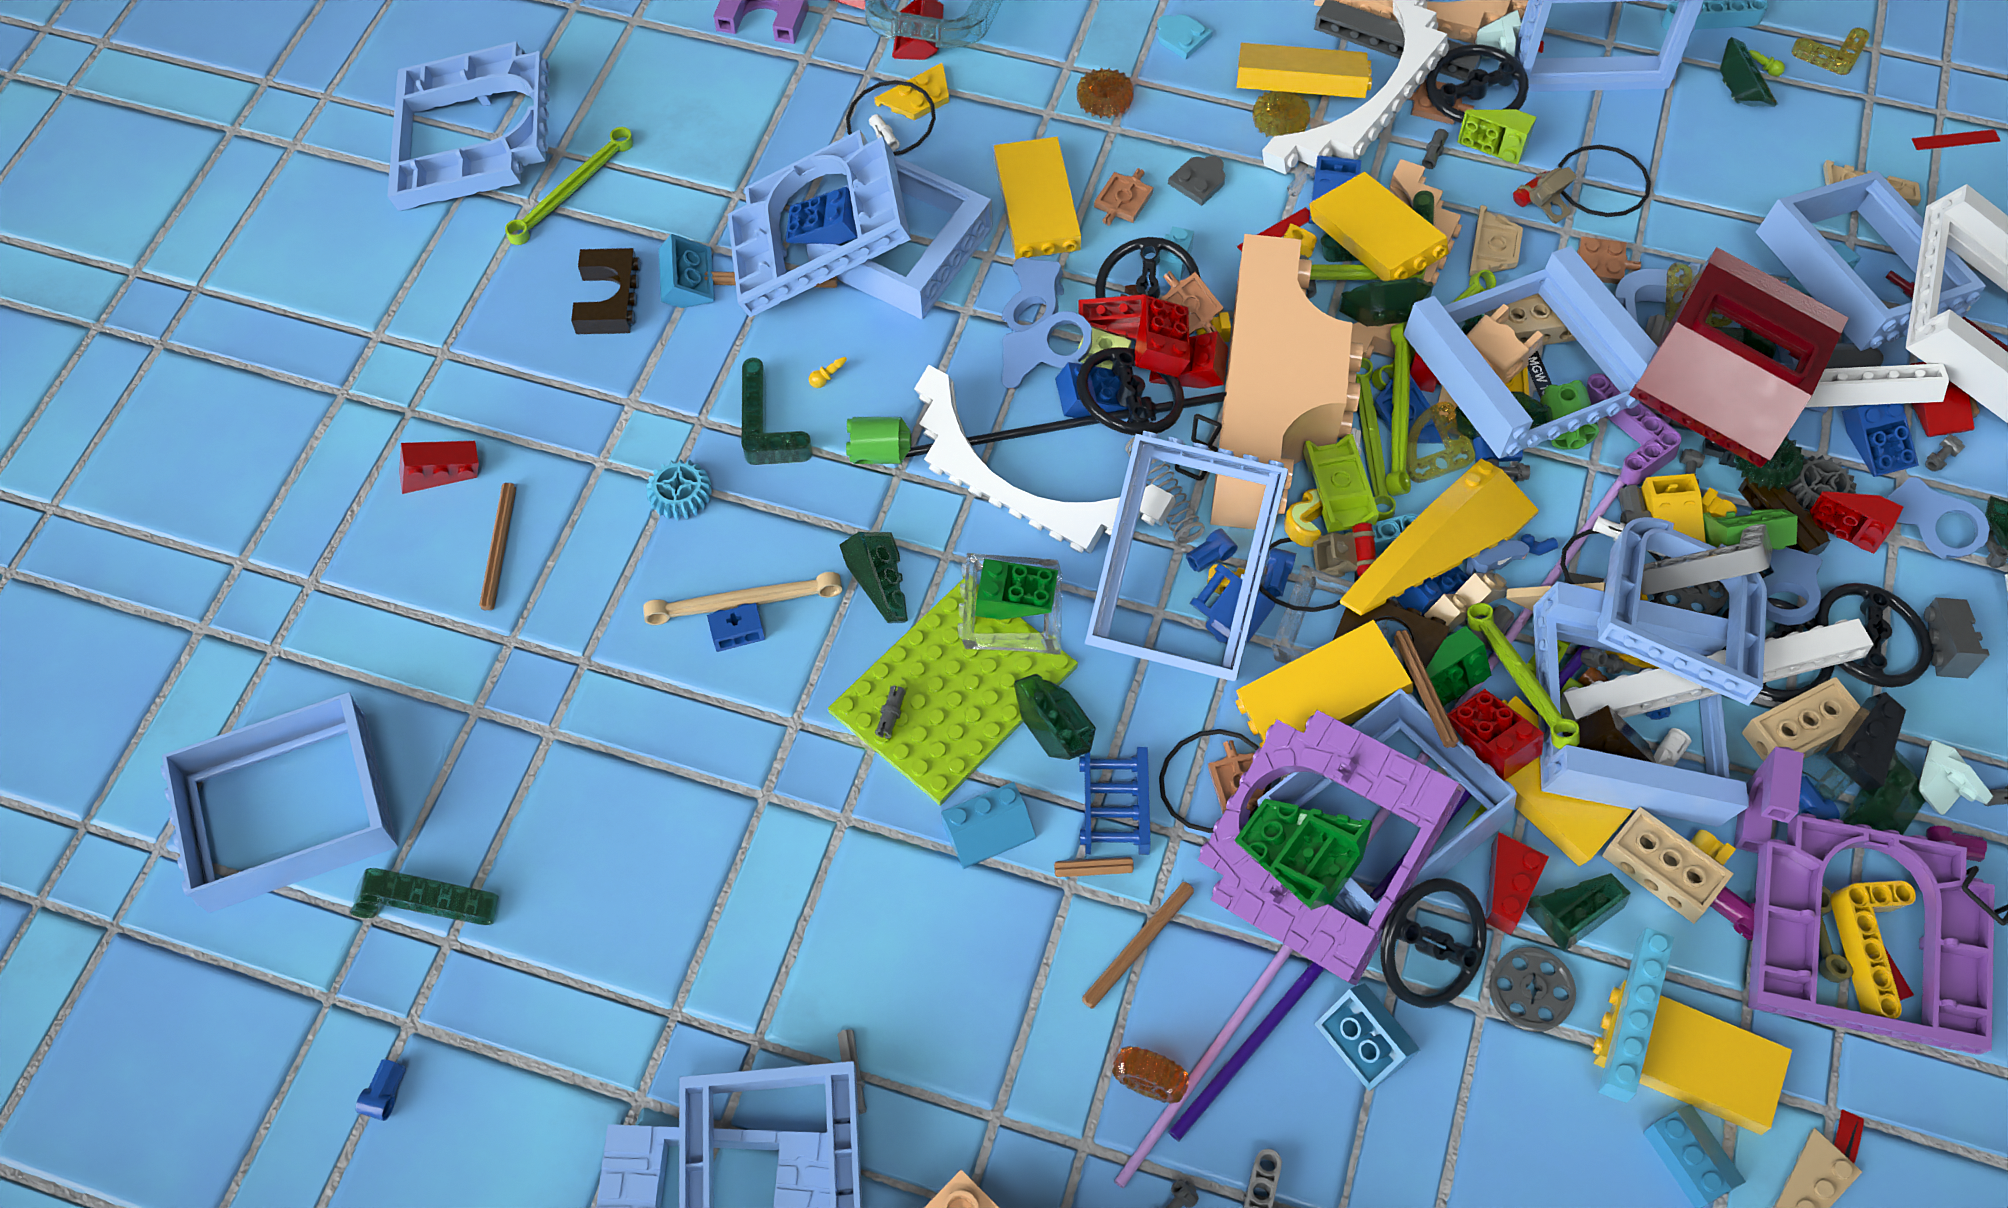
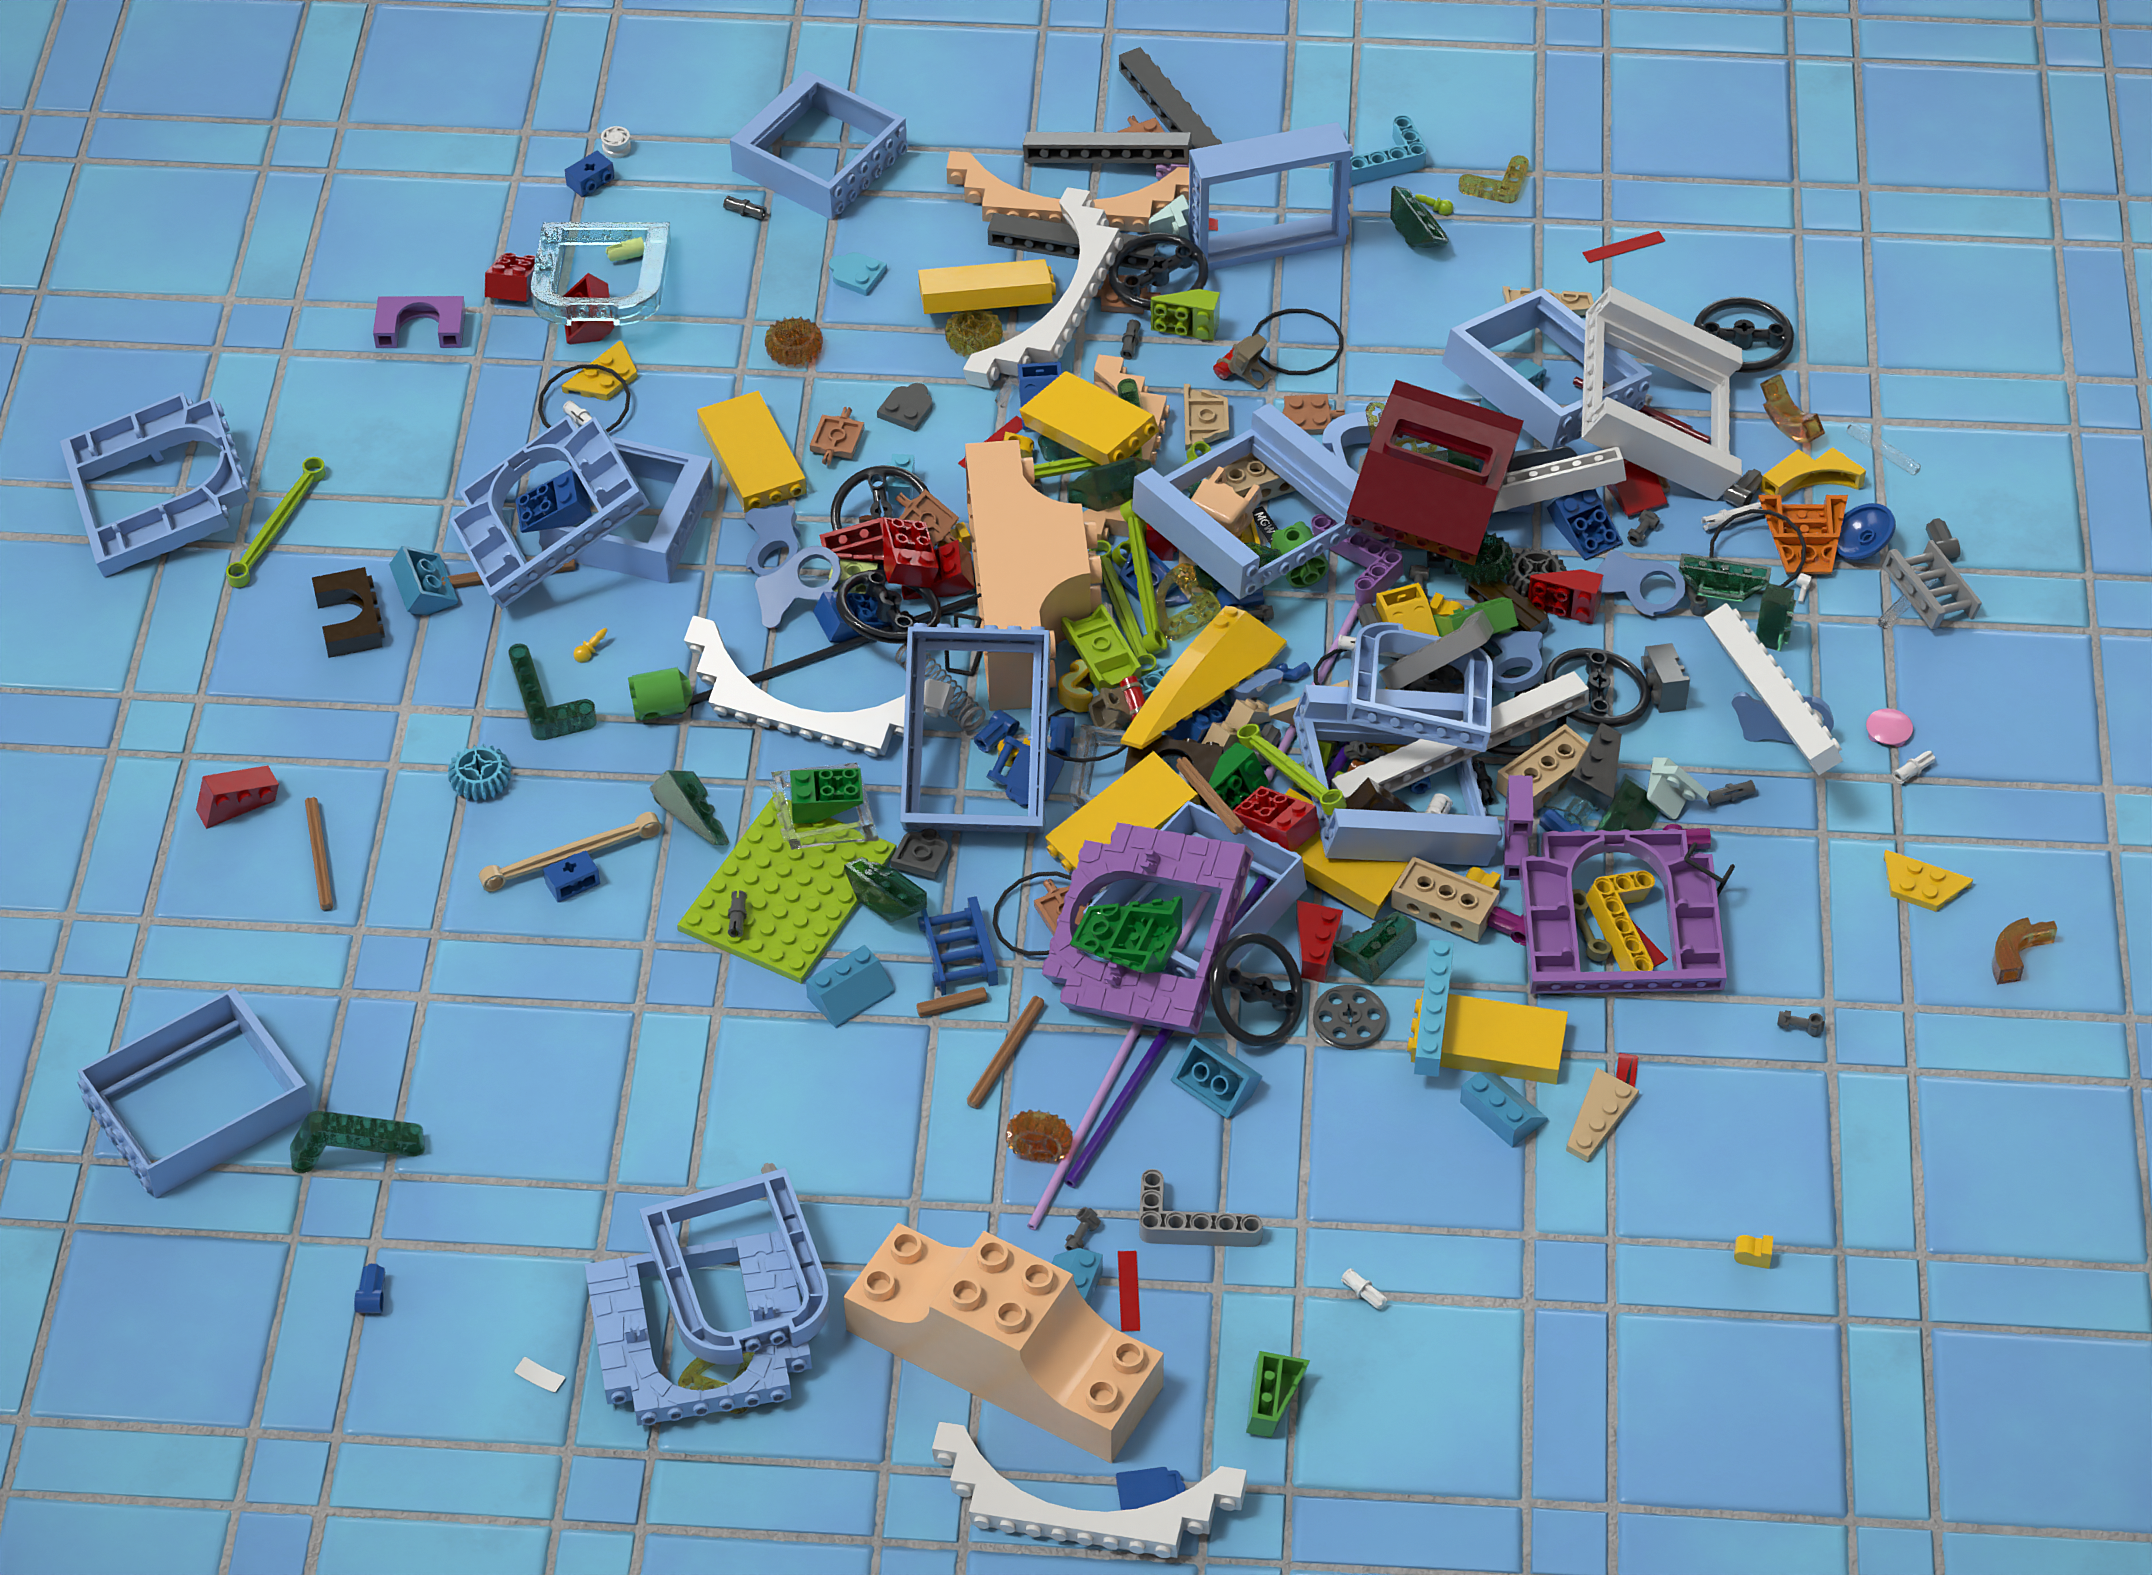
camera: 15 degrees left, 10 degrees down
(1101, 678) = (921, 853): none -> dark grey plate
(1730, 724) = (1484, 783): none -> black pin

